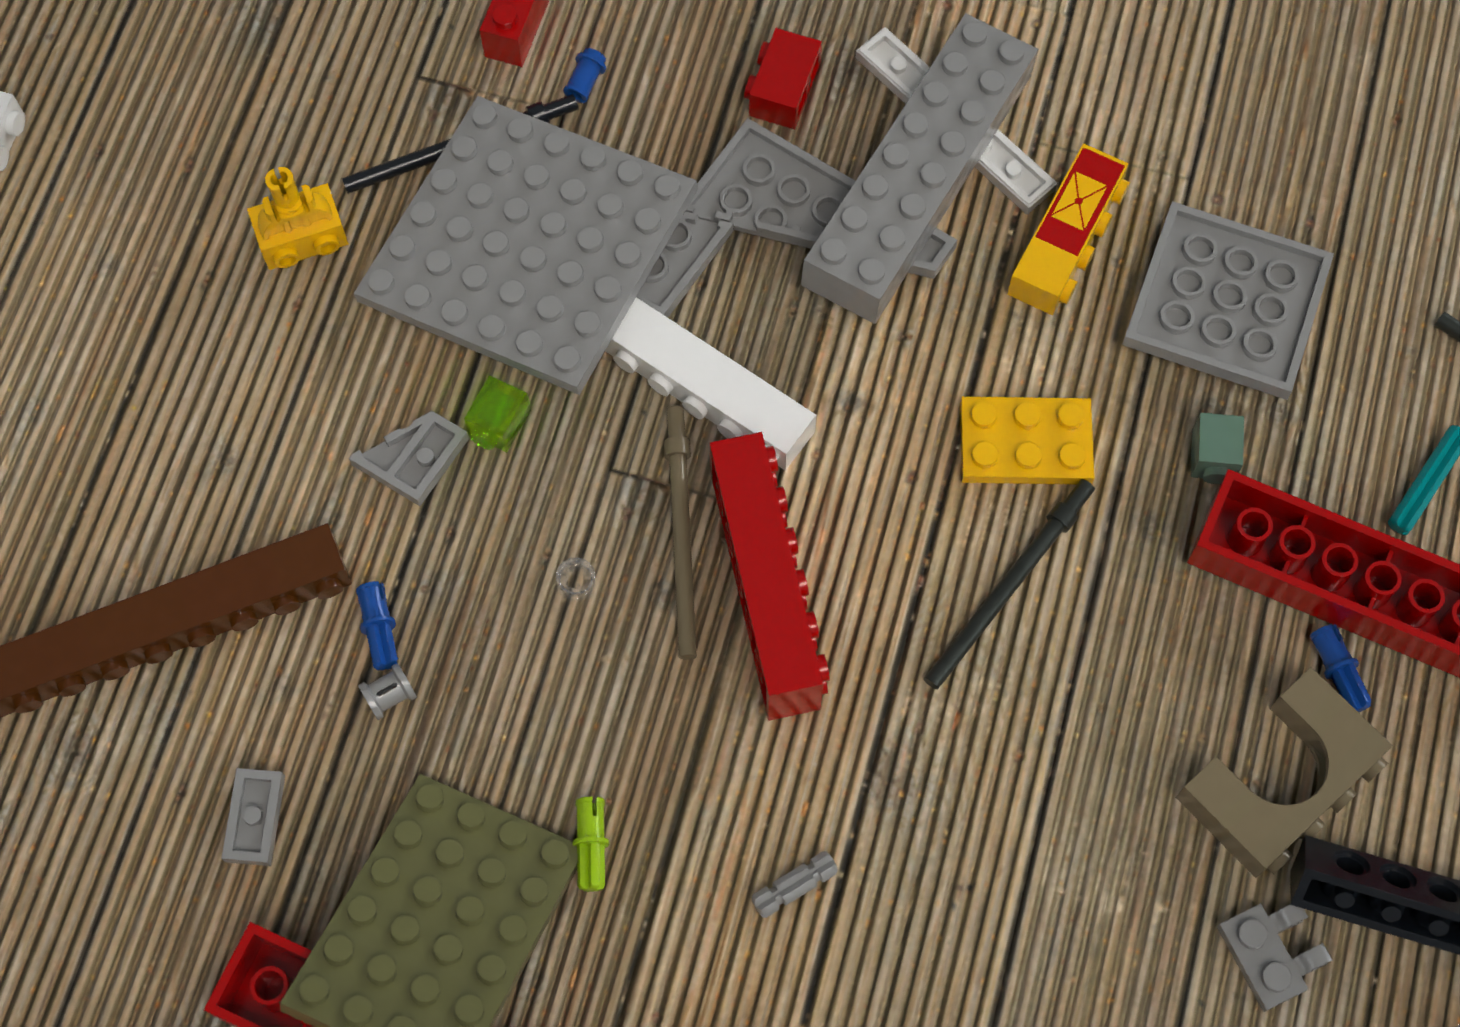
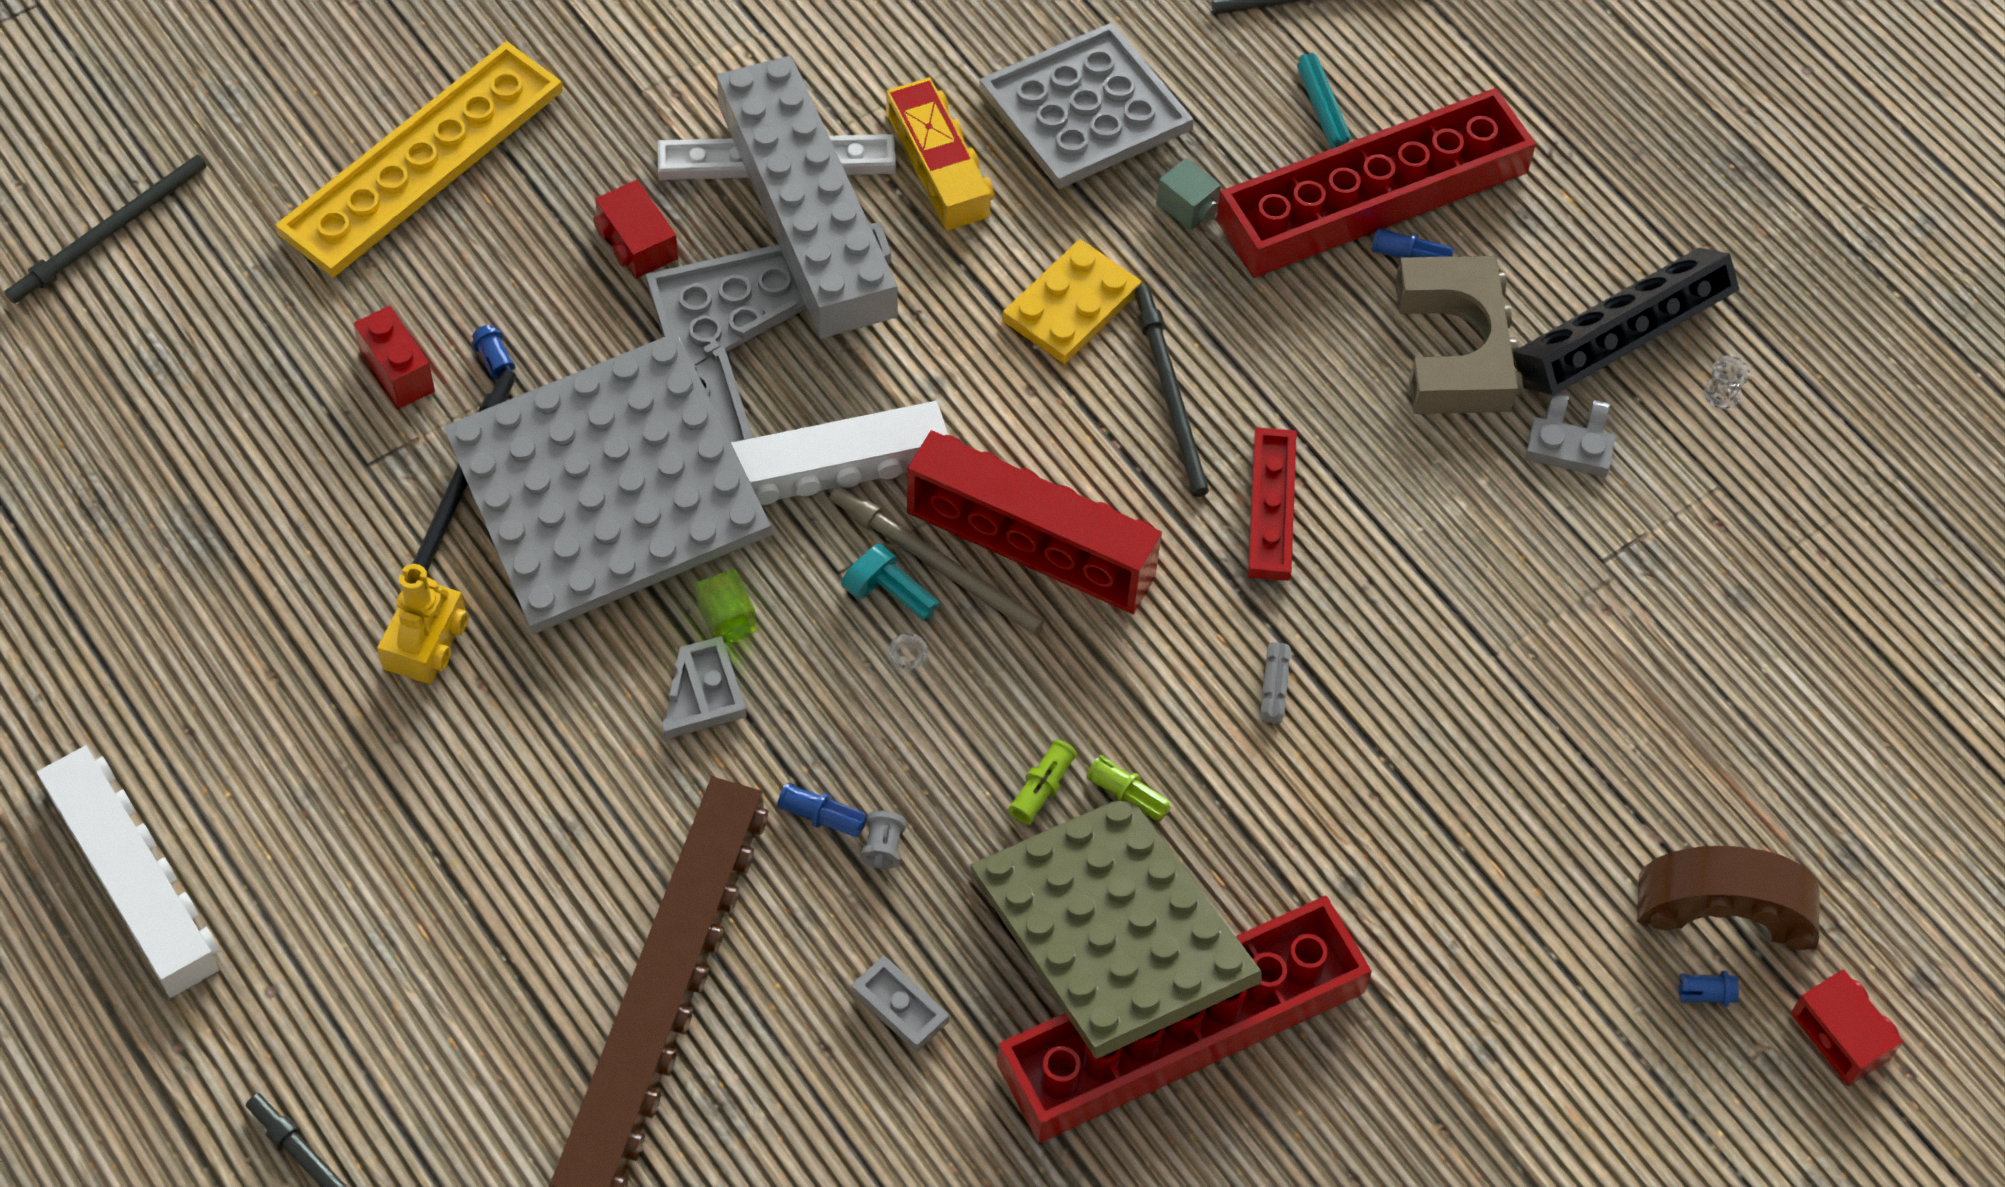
camera: 55 degrees left, 10 degrees down
(508, 773) = (1027, 802): none -> lime pin
(631, 495) = (880, 567): none -> teal piece
(967, 749) = (1272, 504): none -> red plate

